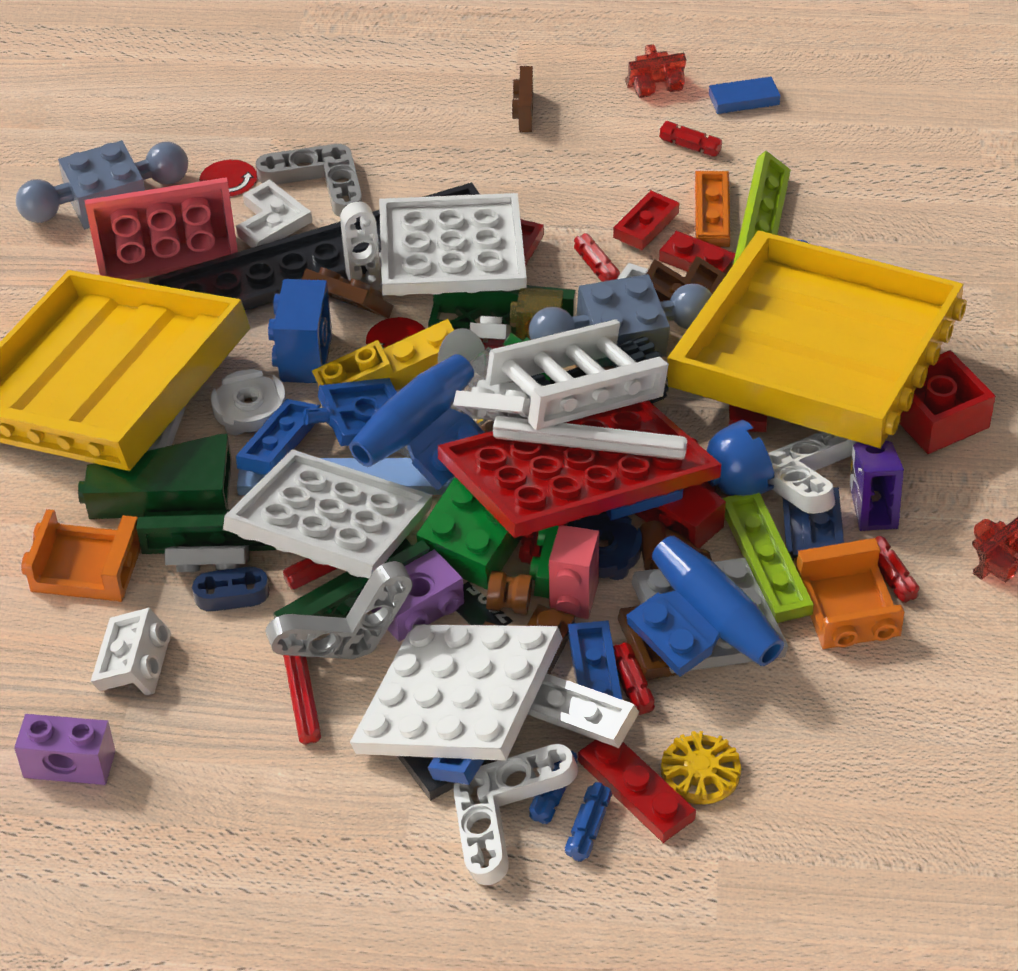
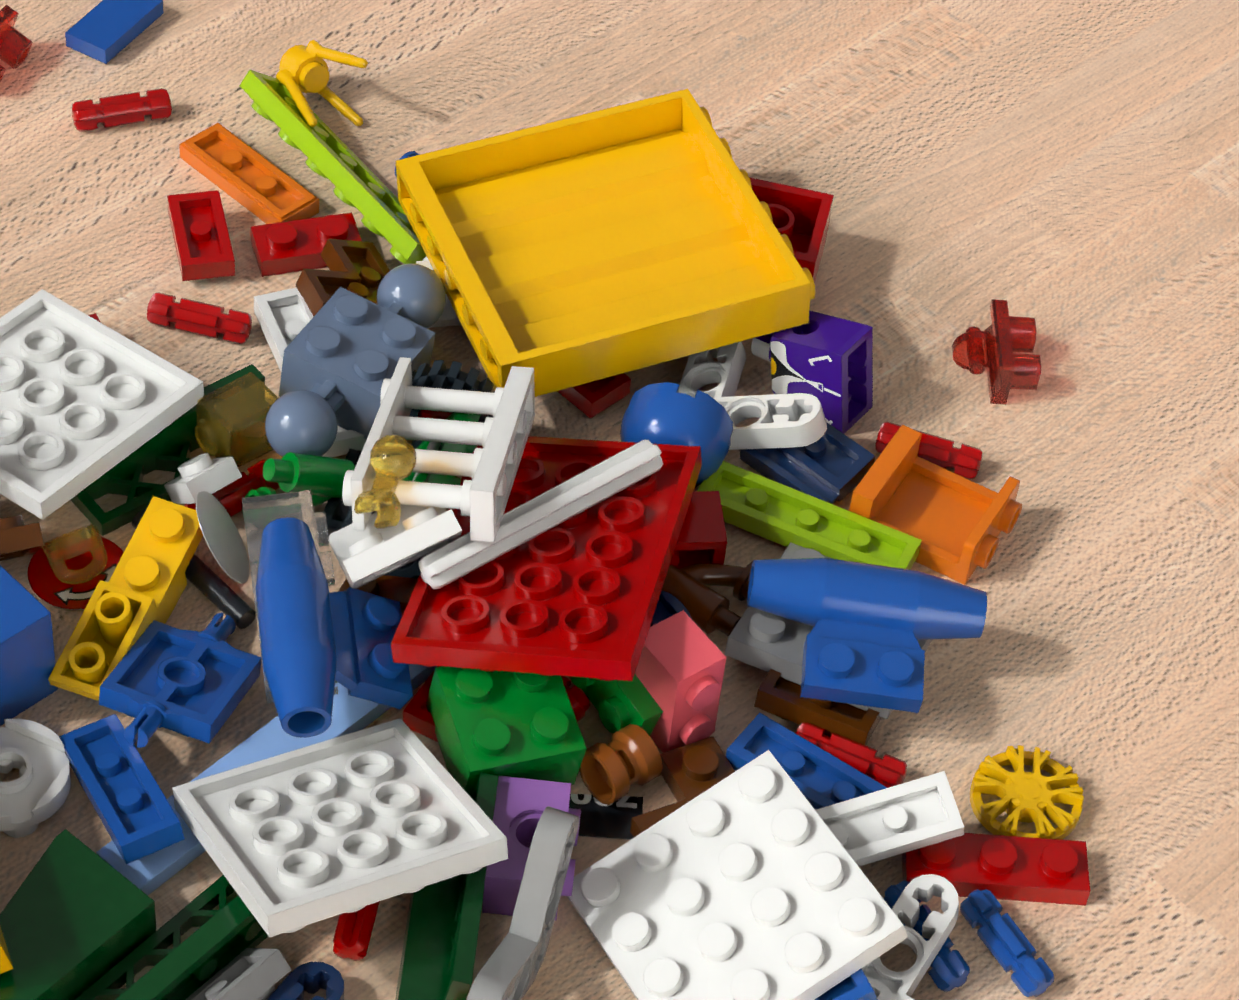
camera: 55 degrees left, 0 degrees up
(398, 321) = (74, 544): none -> clear yellow tile
(517, 357) = (391, 461): none -> clear yellow arm
(803, 172) = (305, 71): none -> yellow plant

